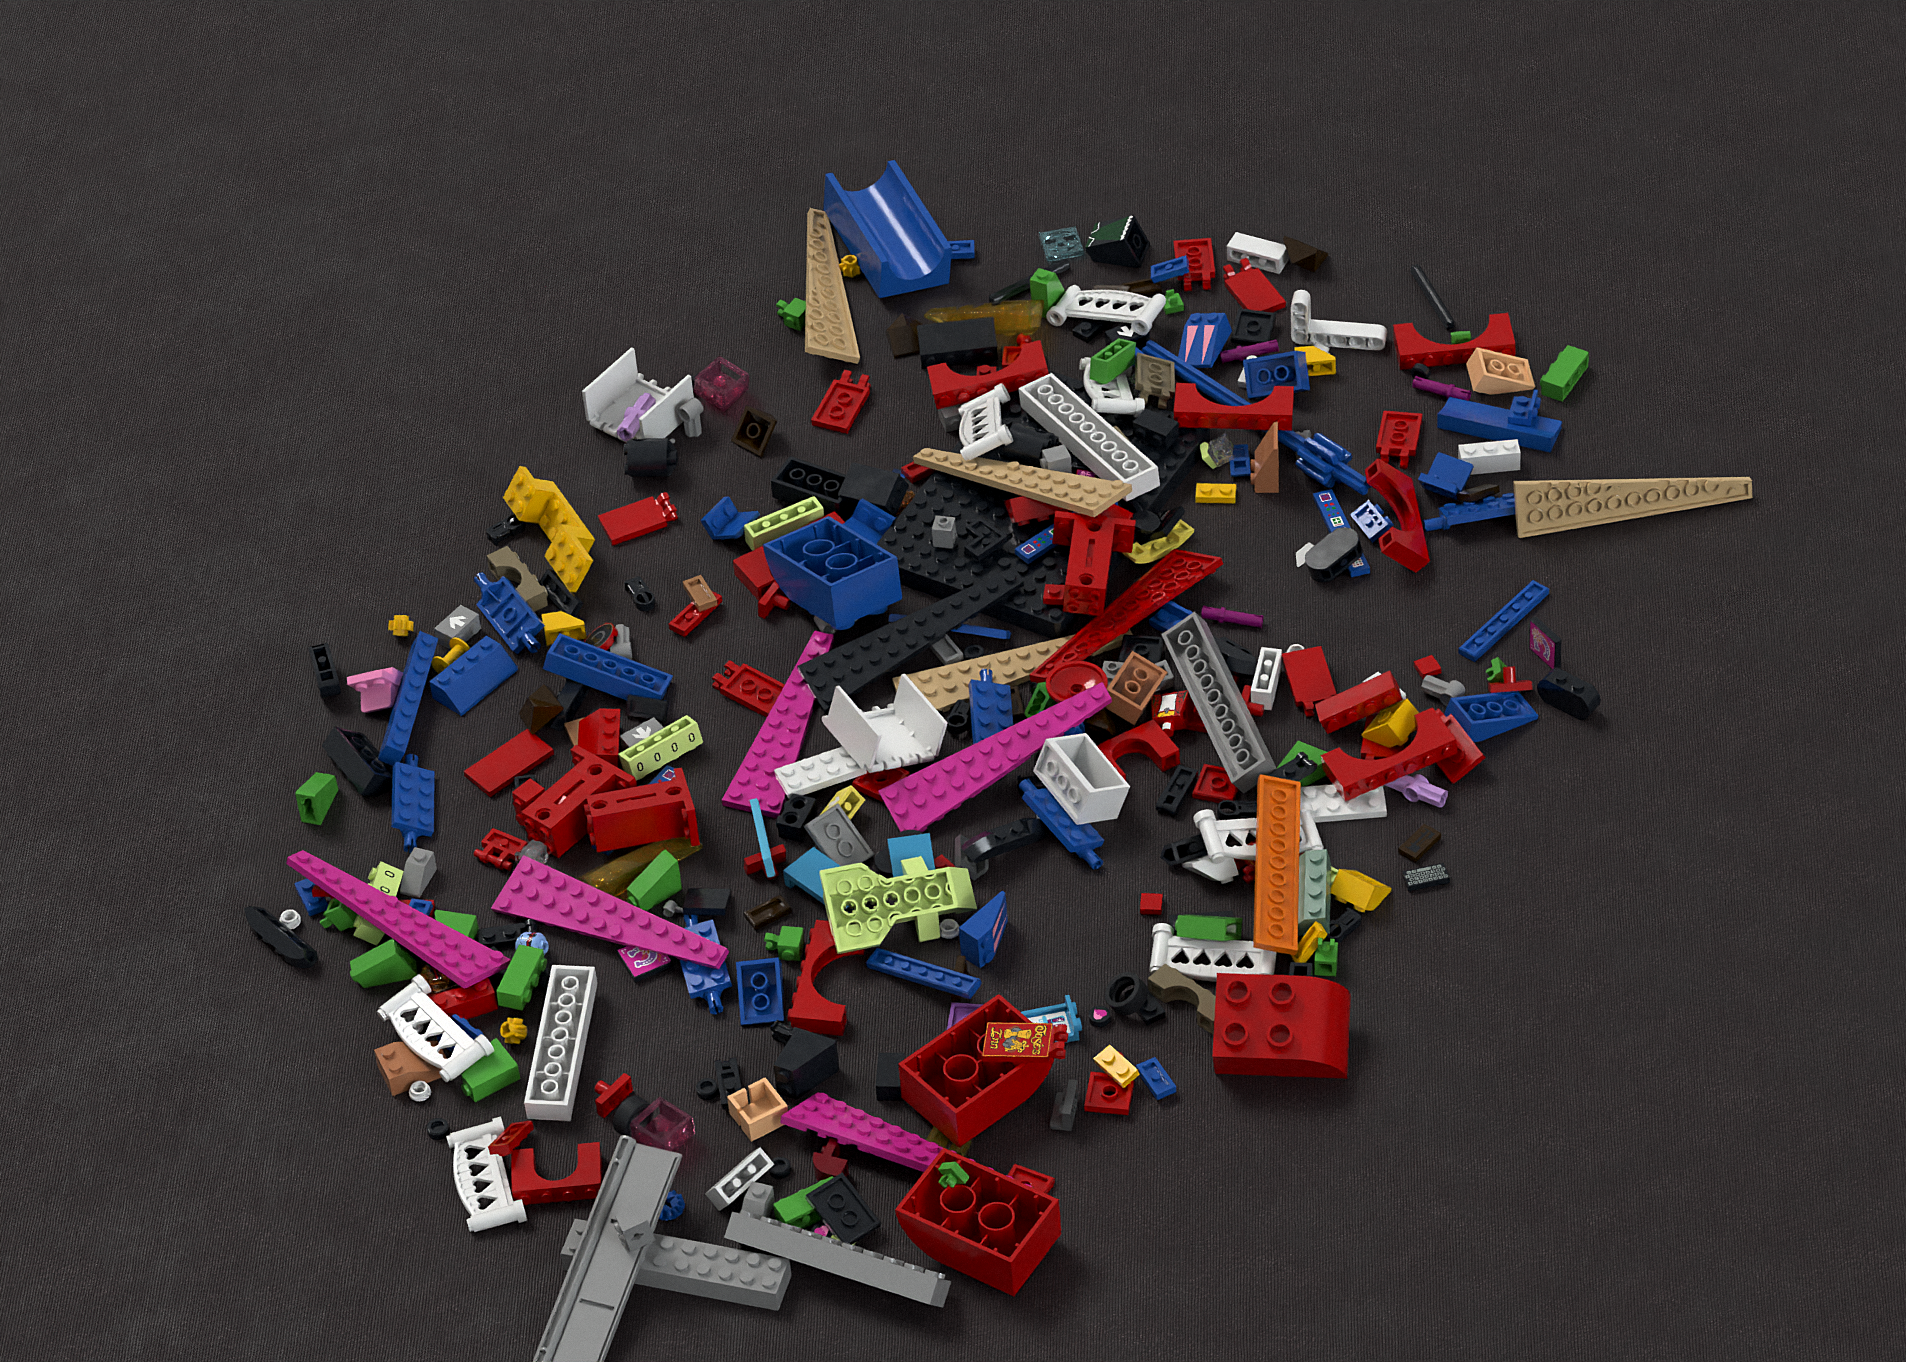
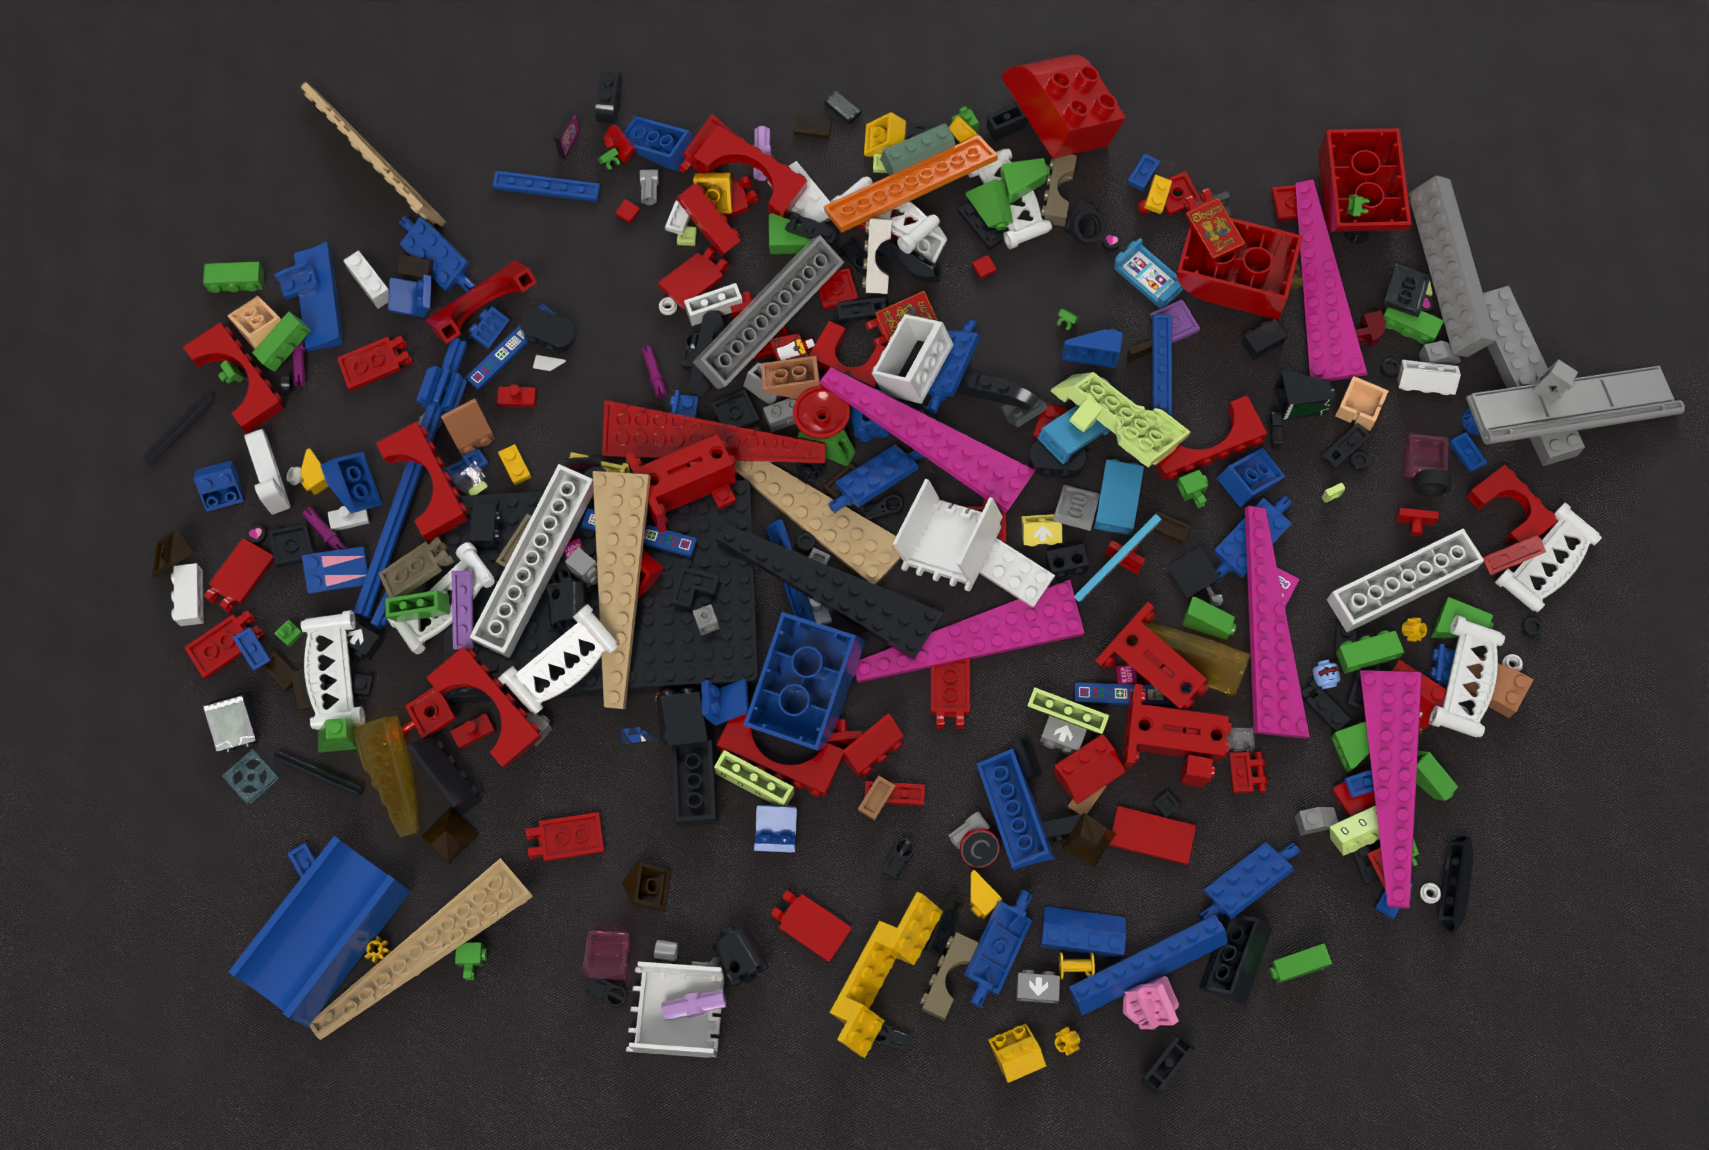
camera: 125 degrees left, 25 degrees up
(422, 593) = (1017, 1052): none -> yellow slope
(692, 1045) = (1333, 492): none -> yellowish green tile
(744, 610) = (873, 746): none -> red slope
(916, 472) = (610, 717): red tile -> none
(1041, 937) = (1069, 317): none -> bright green tile
(1090, 383) = (462, 609): none -> medium lavender tile
(1140, 811) = (889, 317): none -> red tile
(1220, 957) = (1023, 177): none -> bright green slope
(1232, 802) = (879, 231): none -> arch
(1283, 312) = (256, 534): none -> black tile
(1284, 518) = (516, 396): none -> red tile
(1350, 299) = (218, 485): none -> blue slope
(1461, 375) = (281, 341): none -> bright green brick

